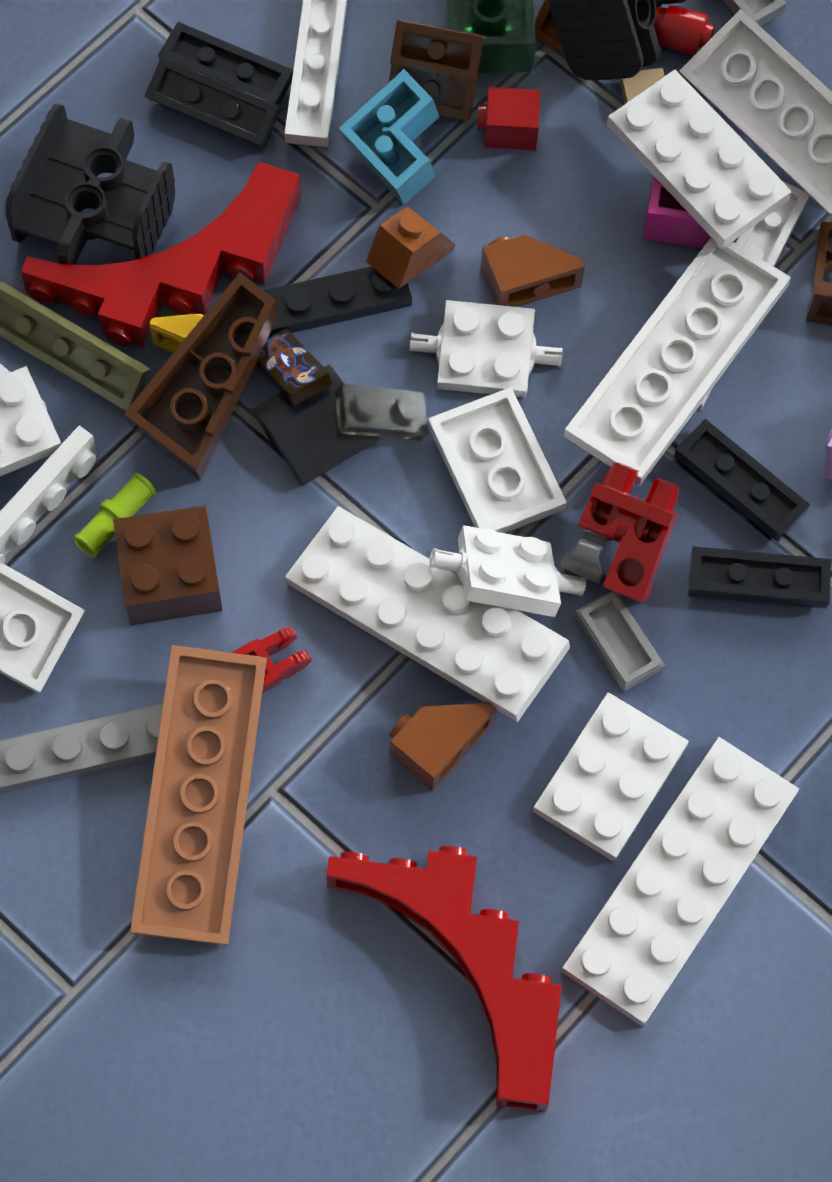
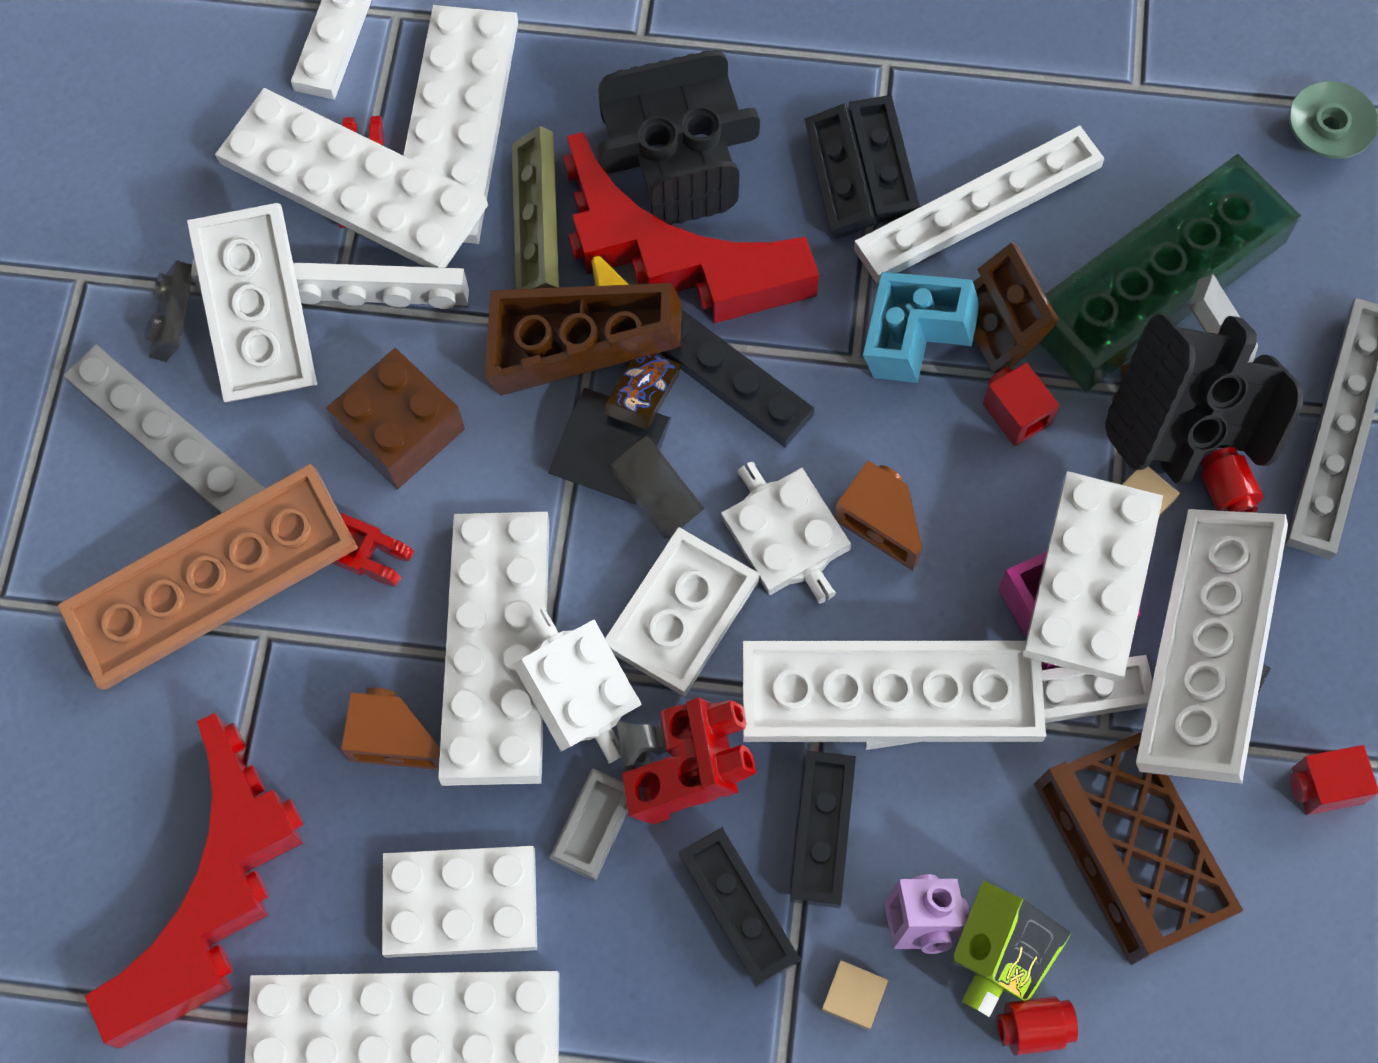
camera: 60 degrees right, 0 degrees up
(123, 504) = (418, 350): lime pin -> none
(407, 247) = (826, 402): dark orange slope -> none

